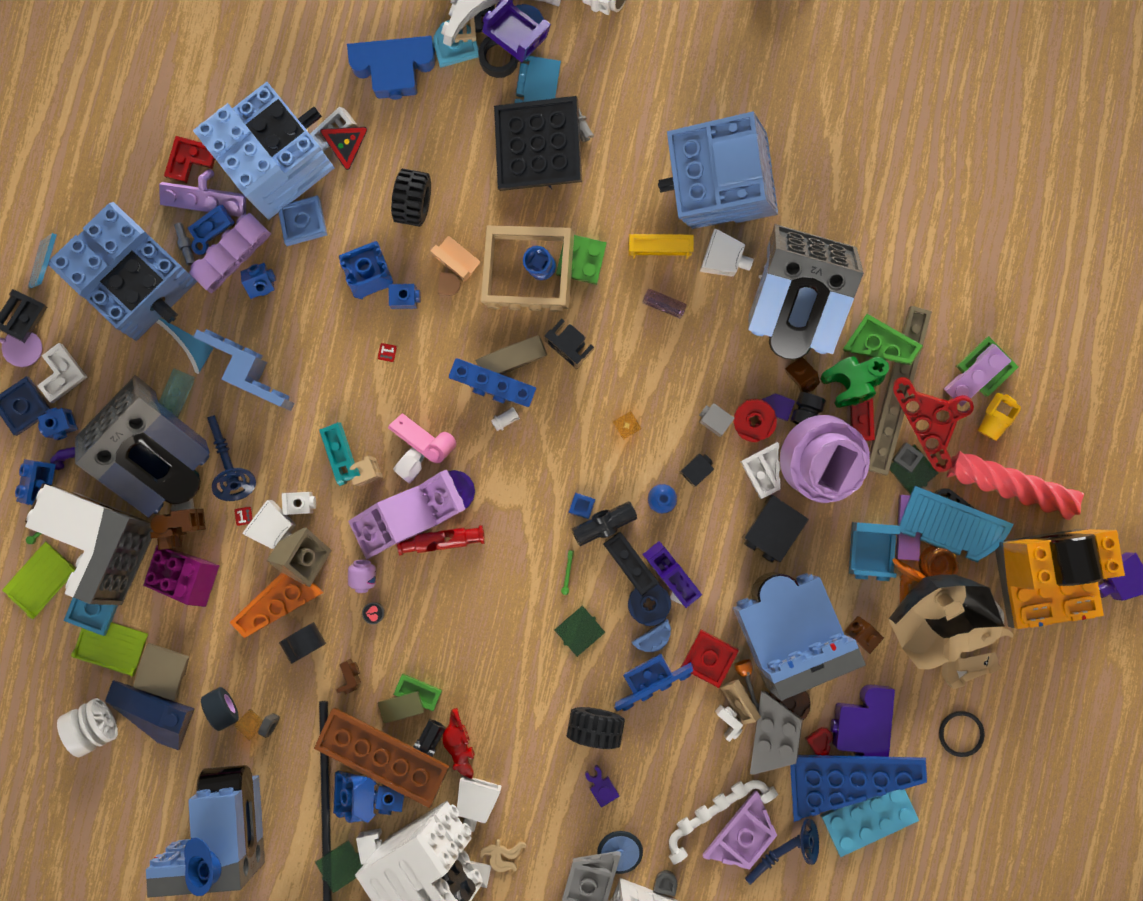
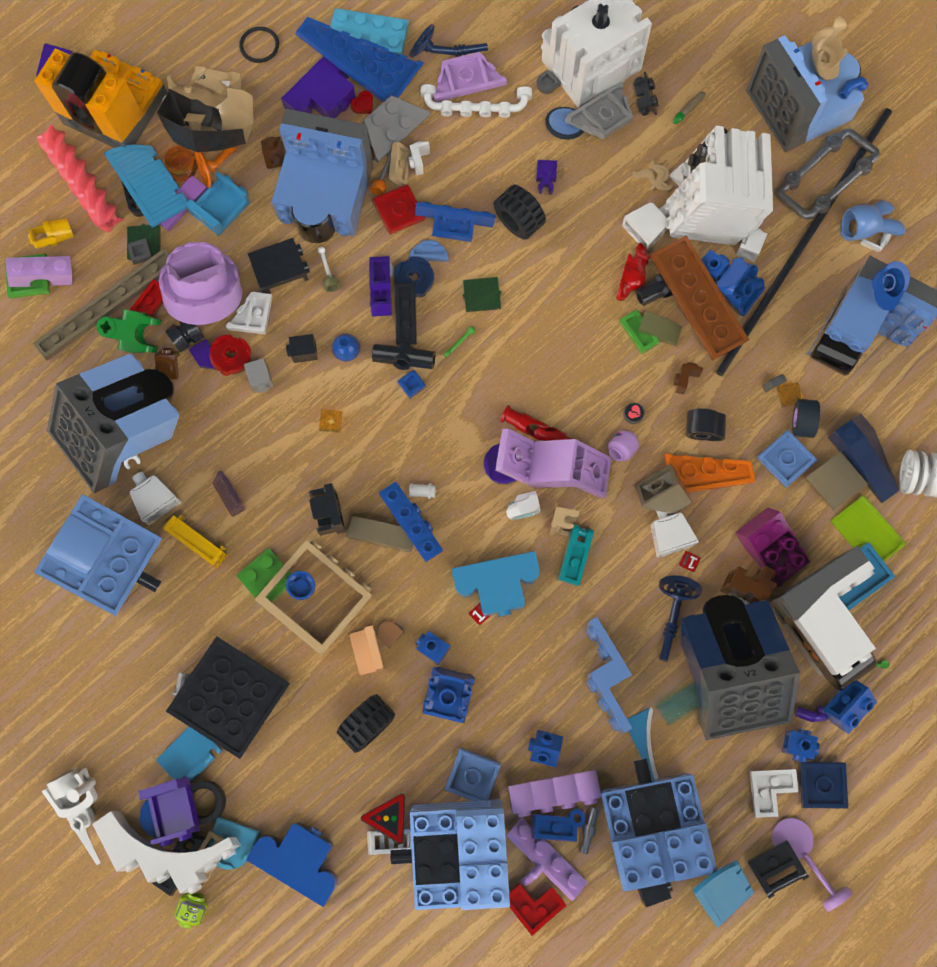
camera: 140 degrees left, 10 degrees down
(39, 580) = (897, 625): lime piece -> none
(216, 662) = (786, 458): none -> medium blue plate
(289, 503) = (639, 545): white brick -> none
(339, 866) = (784, 246): clear green piece -> none
(387, 385) = (497, 582): none -> dark azure brick
(432, 448) = (494, 503): bright pink door -> none
(719, 548) = (330, 282): none -> olive hinge
(880, 340) = (86, 343): bright green wing -> none
(937, 429) = (96, 270): red beam -> none

